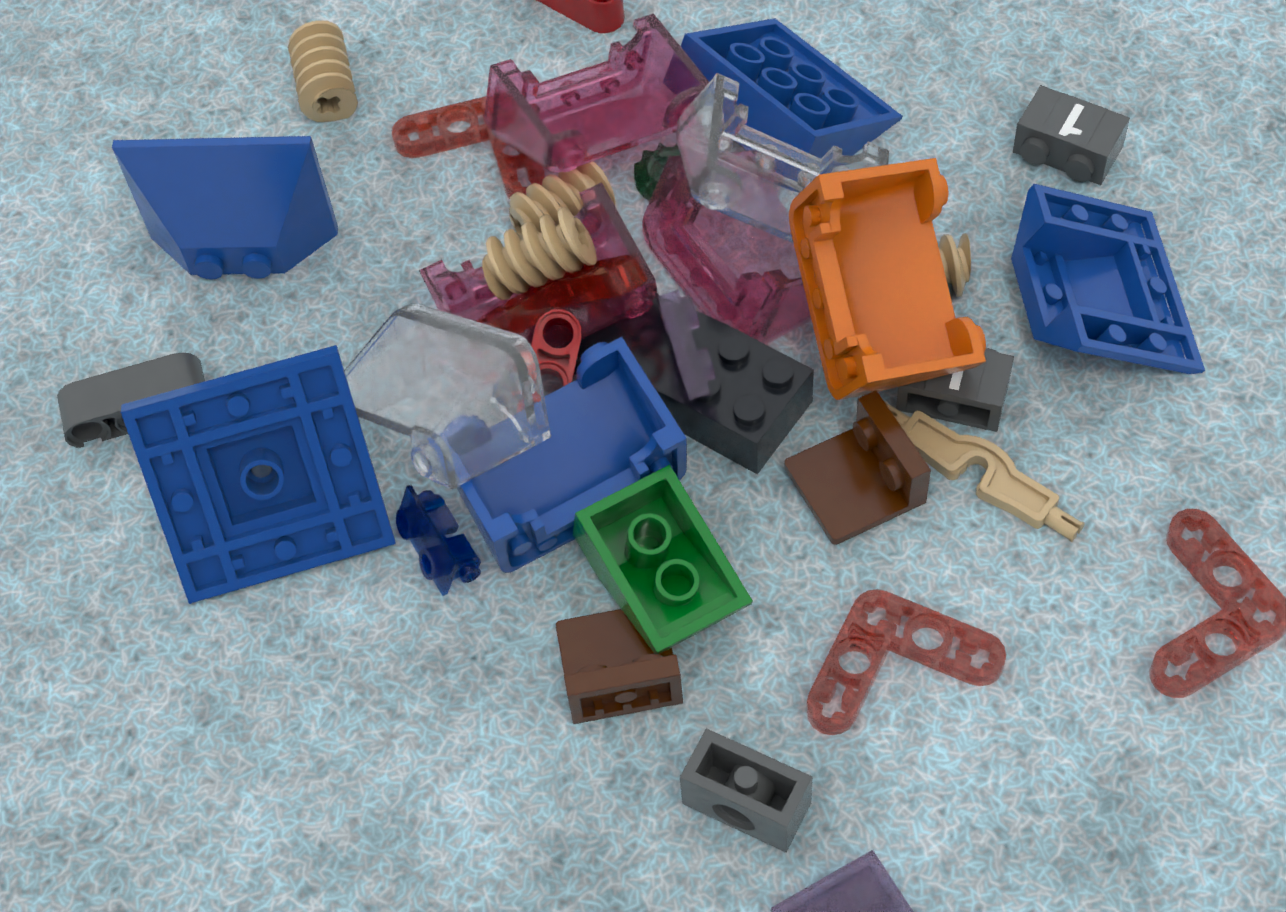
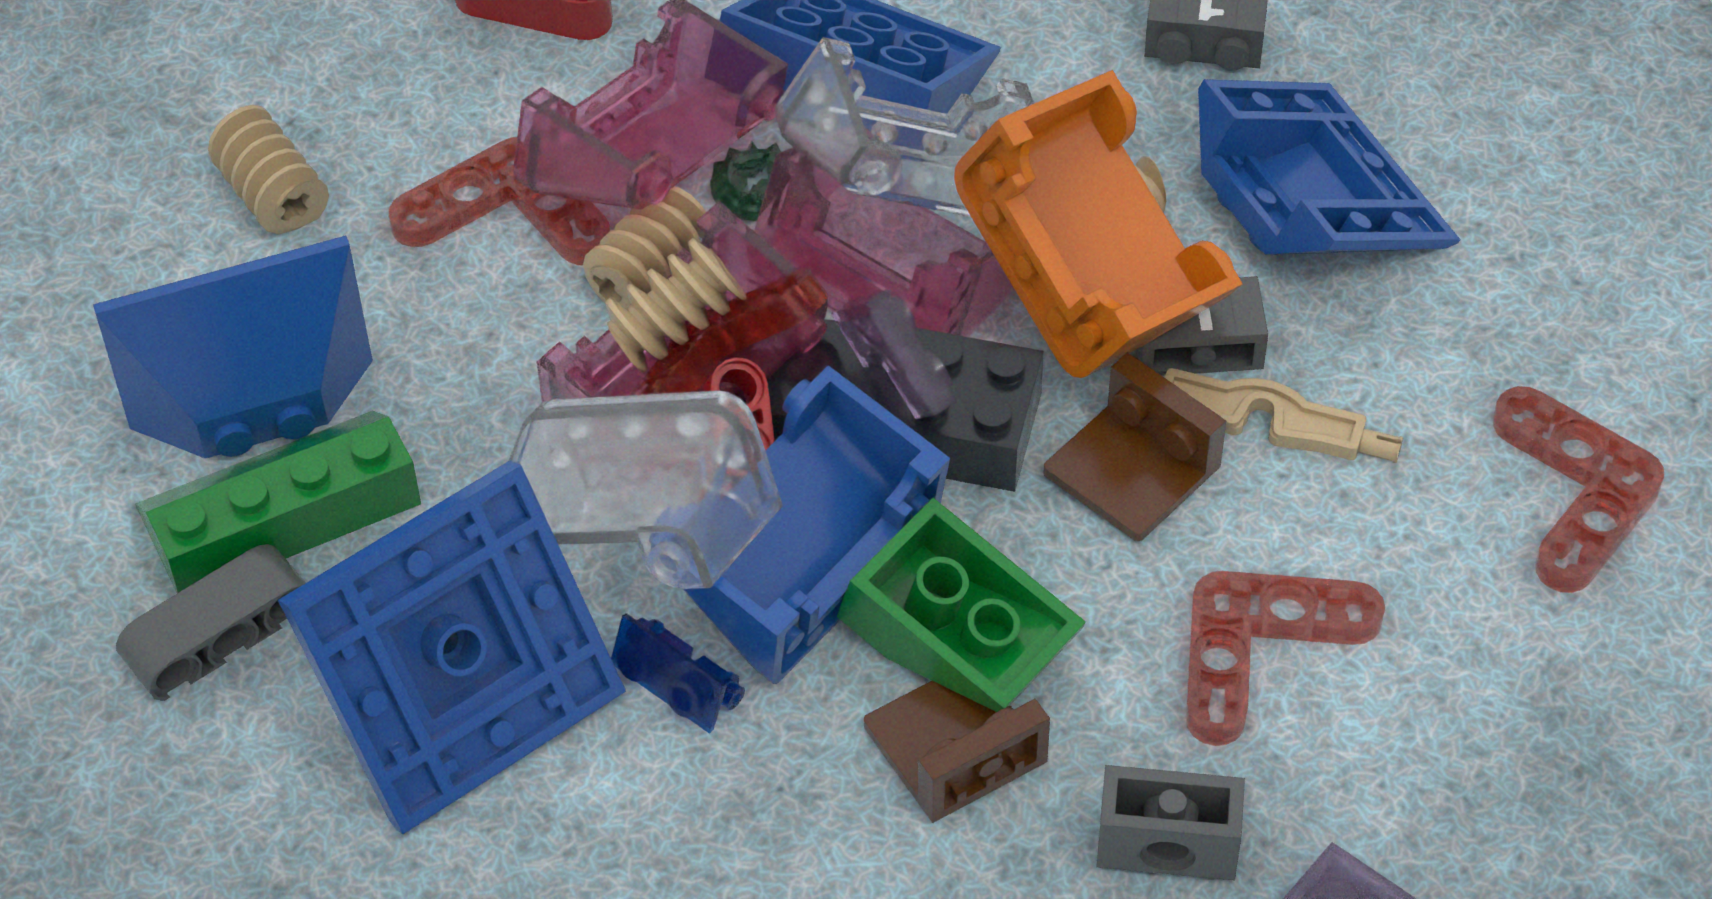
camera: 25 degrees left, 5 degrees down
(219, 321) = (284, 498): none -> green slope

